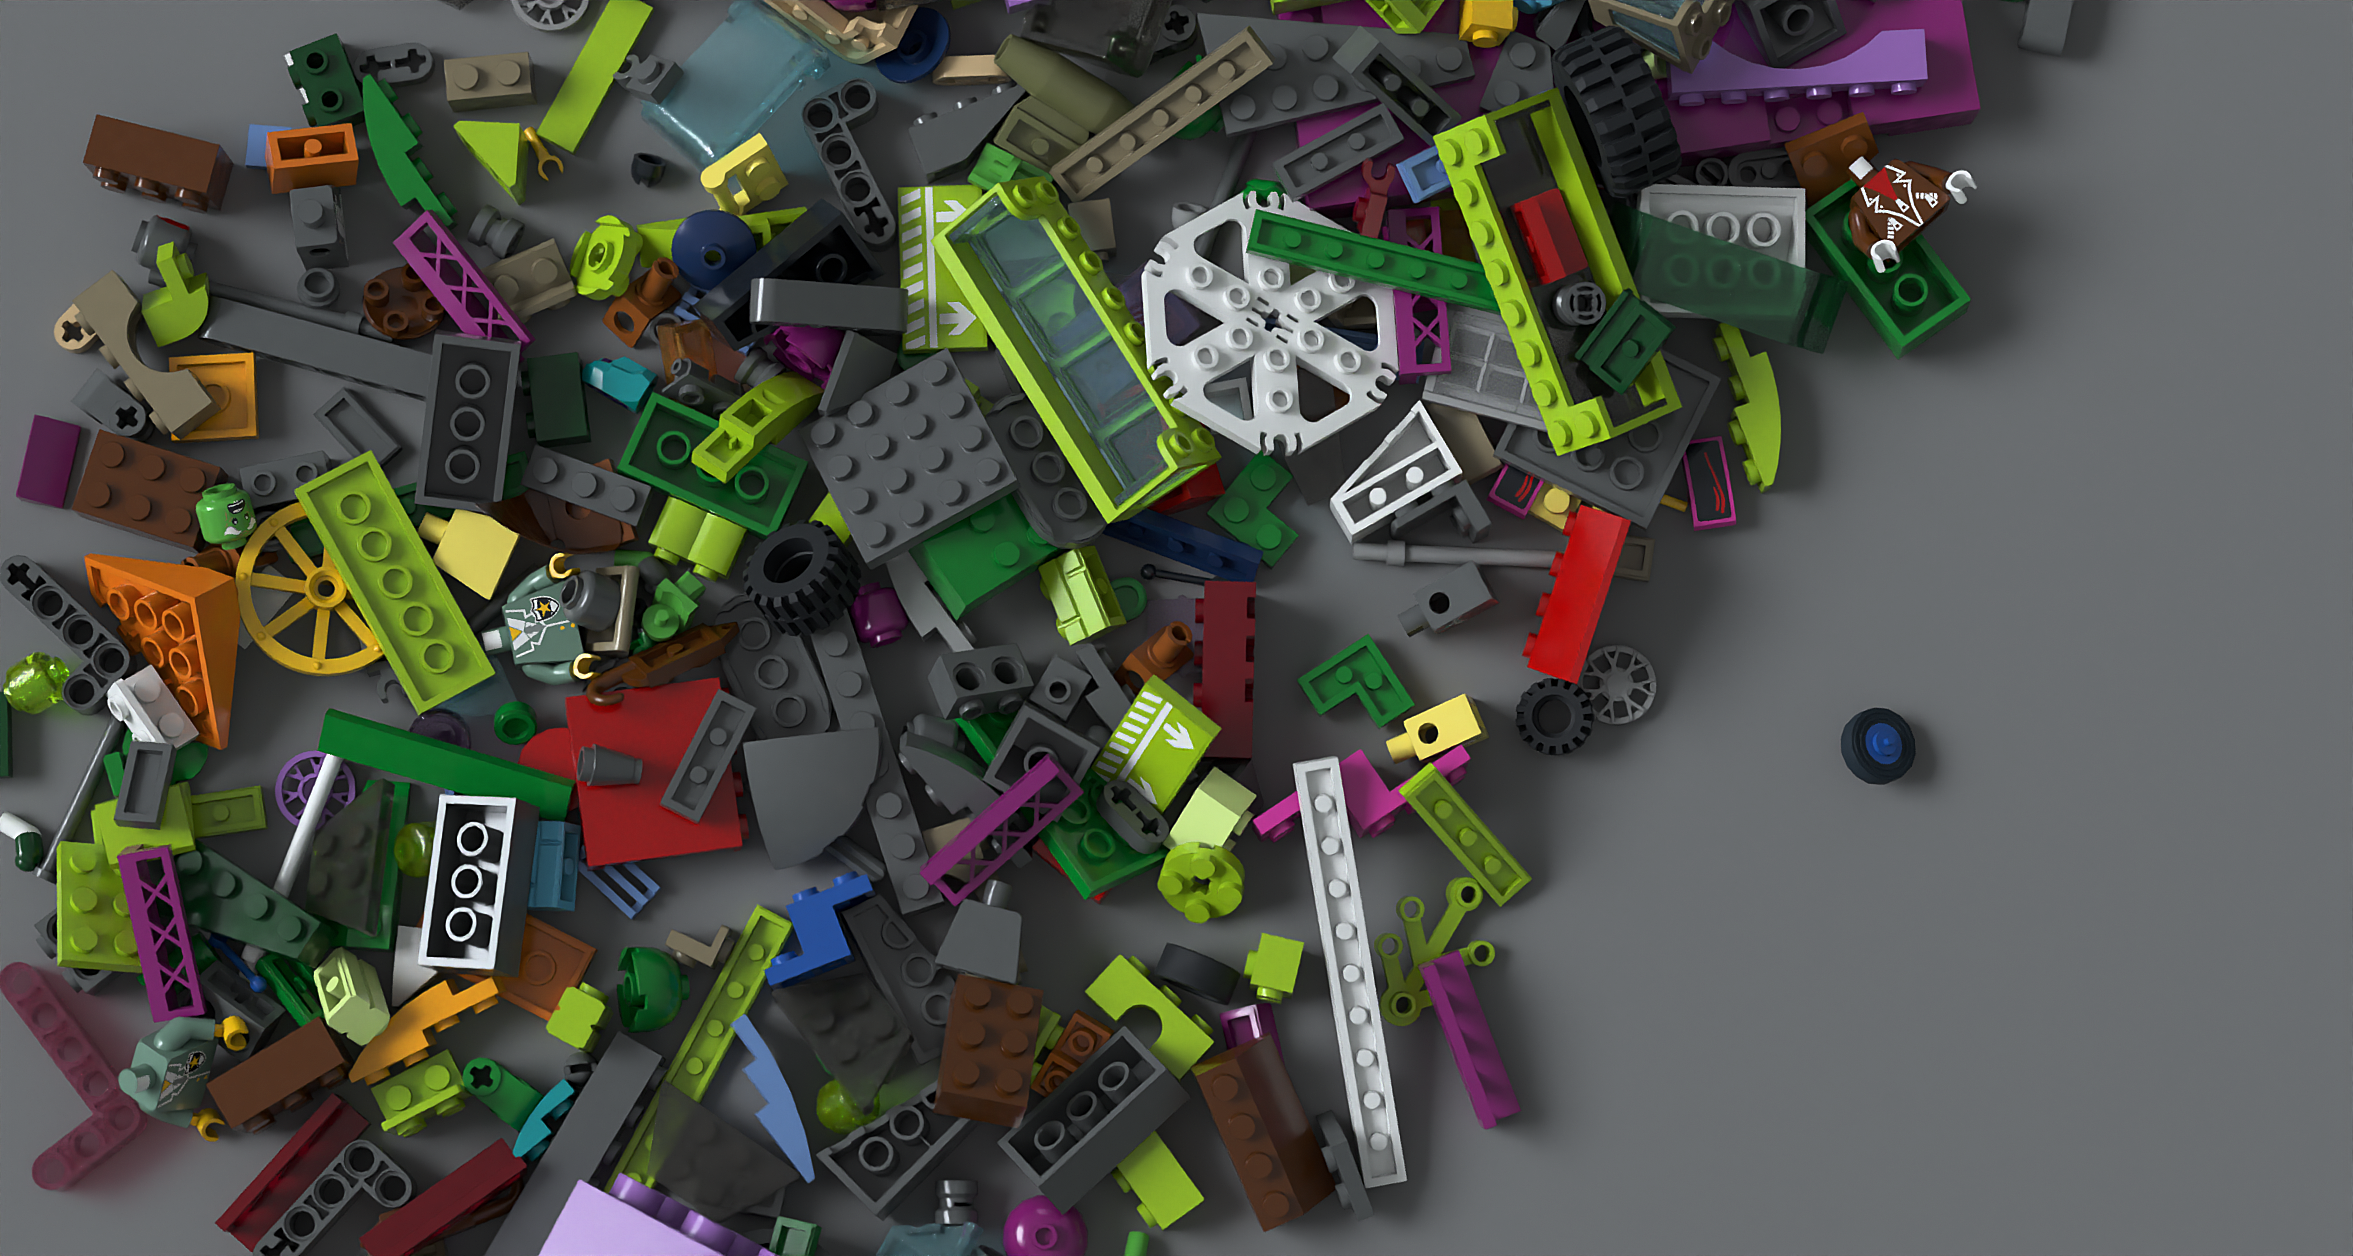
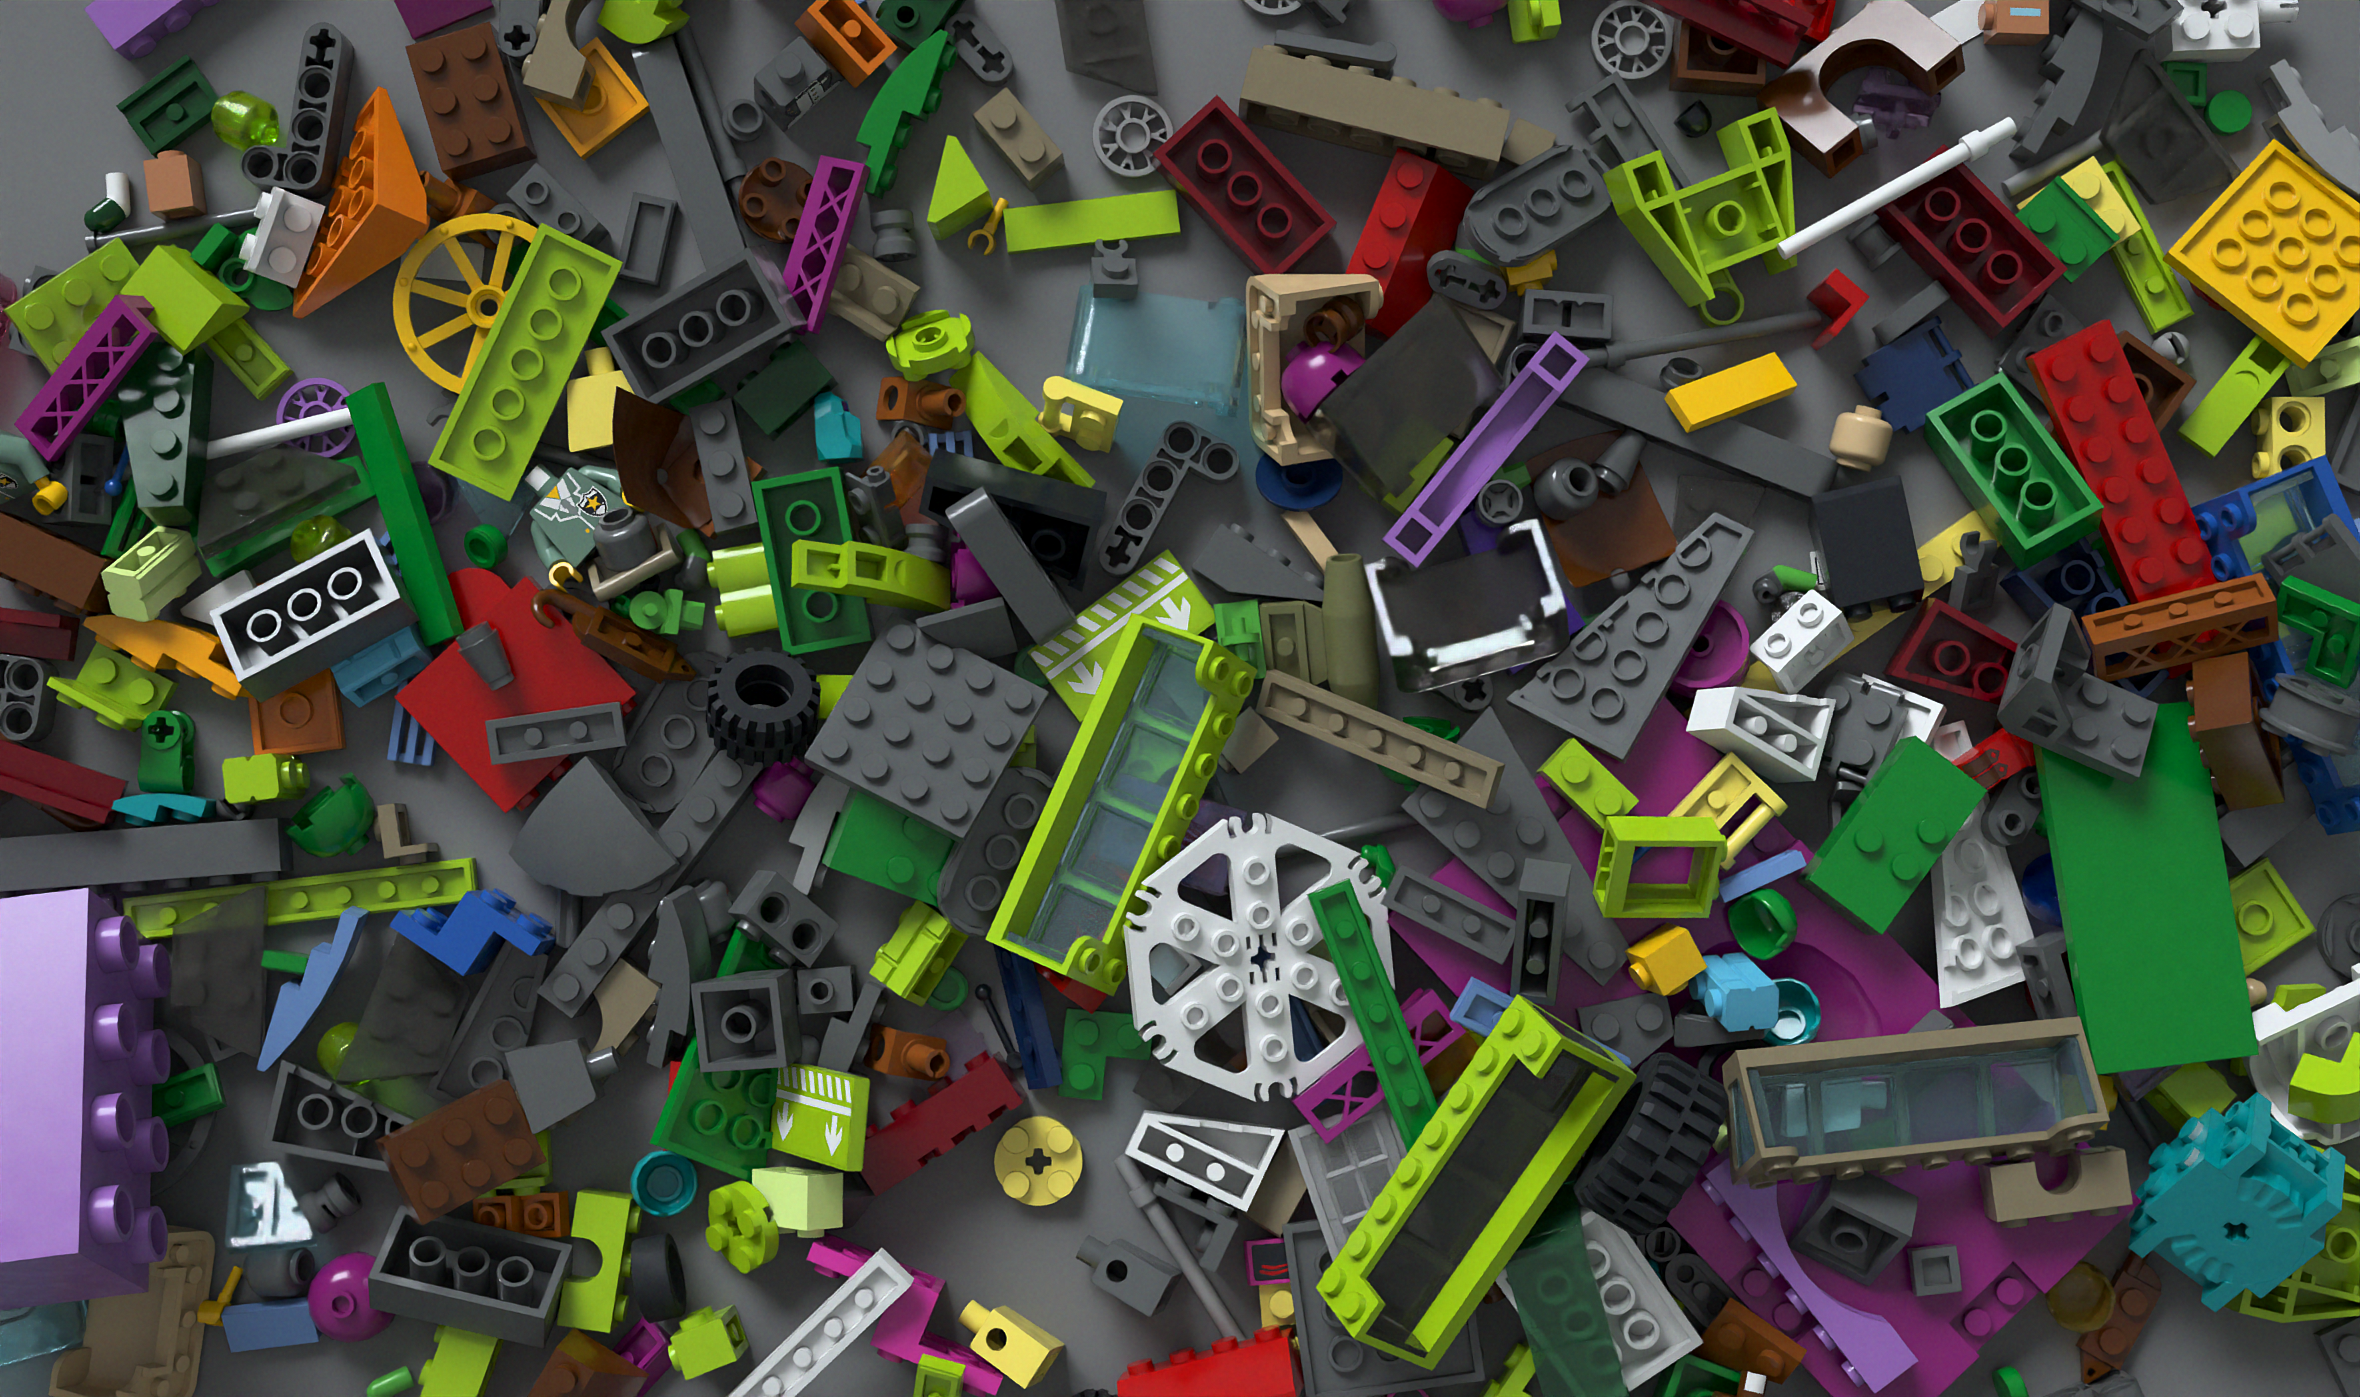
camera: 55 degrees right, 5 degrees up
(46, 775) = (175, 186): none -> nougat brick
(145, 785) = (201, 275): dark grey tile -> none
(226, 516) = (483, 180): bright green head -> none
(648, 167) = (1038, 325): black hinge -> none
(706, 232) = (1010, 420): dark blue dish -> none
(740, 1104) = (285, 961): none -> green tile
(990, 819) = (663, 1020): magenta fence -> none
(1125, 922) = (664, 1183): none -> teal hair
(1132, 816) = (756, 1128): dark grey beam -> none
(1185, 212) = (1314, 814): light grey hinge -> none
(1317, 642) = (1020, 1179): none -> light yellow plate
(1362, 672) = (1018, 1235): green plate -> none
(1371, 208) = (1421, 977): dark red plate -> none
(1549, 236) = (1499, 1156): red panel -> none
(1570, 303) = (1451, 1215): dark grey wheel -> none
(1625, 341) = (1452, 1288): dark green plate -> none

